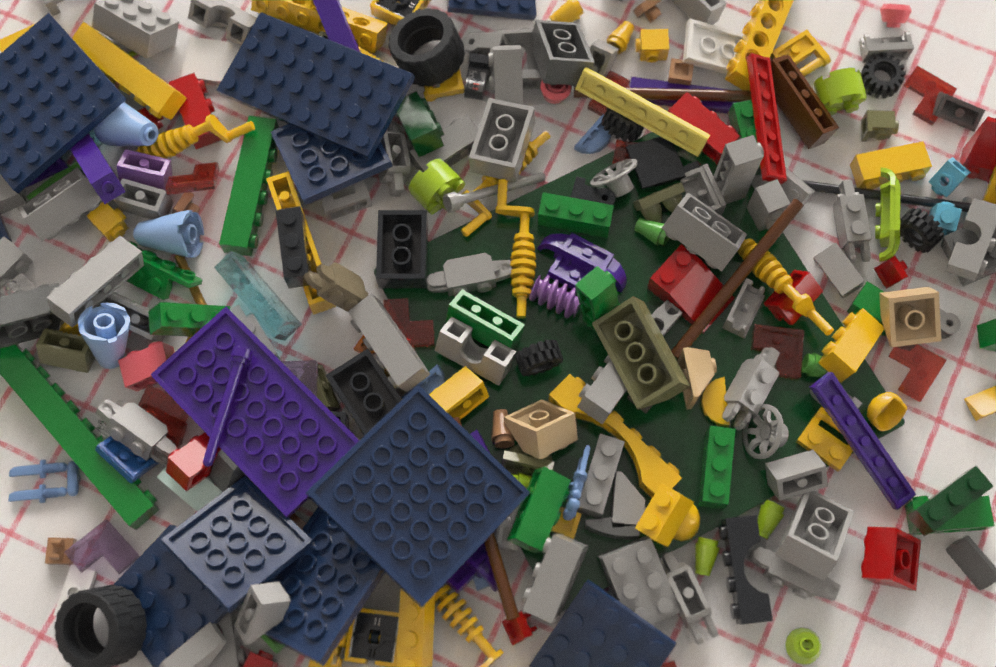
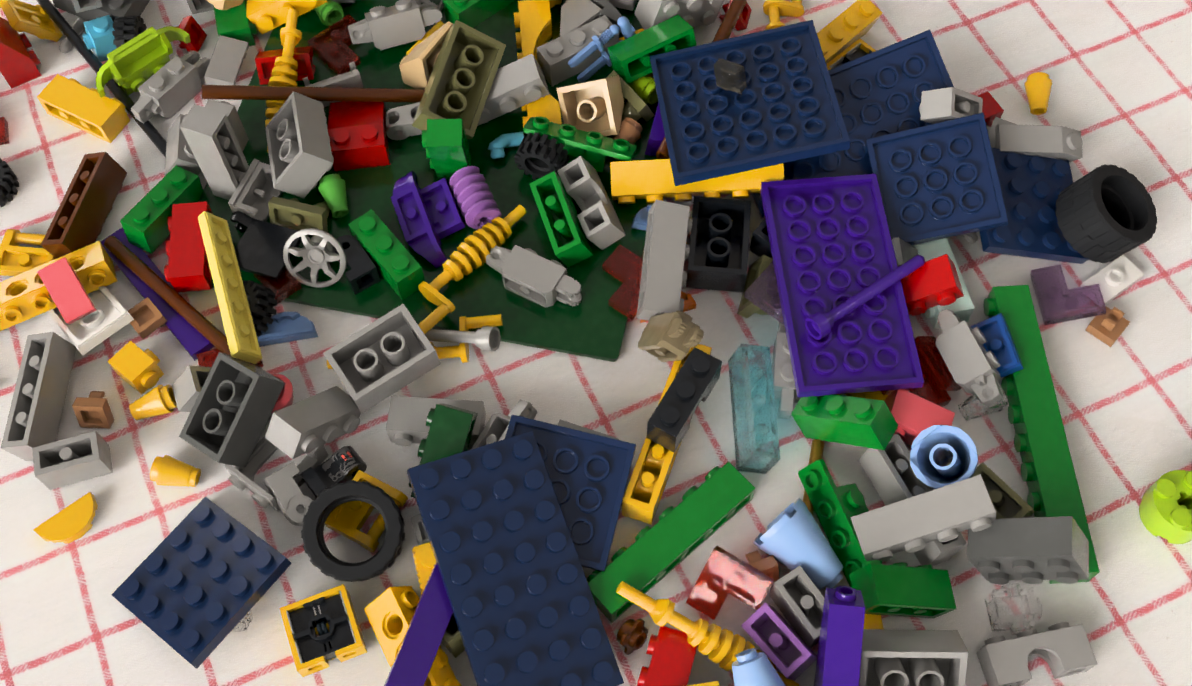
camera: 140 degrees left, 10 degrees down
(42, 493) = (1099, 388): medium blue piece -> none
(88, 240) = (904, 589): none -> green brick
(232, 120) = (632, 635): none -> reddish brown plate
(402, 249) = (575, 338): black brick -> none
(433, 183) = (487, 377): lime brick -> none
(440, 492) = (730, 76): none -> clear smoke plate
(522, 387) = (589, 145): none -> green bracket
(584, 356) = (504, 141): none -> medium azure arm
(734, 38) = (66, 290): none -> coral tile
(766, 118) = (128, 199): red tile -> none
(841, 90) = (40, 184): lime brick -> none
(878, 125) = (50, 145): olive brick -> none
(954, 172) = (55, 59): medium azure brick -> none

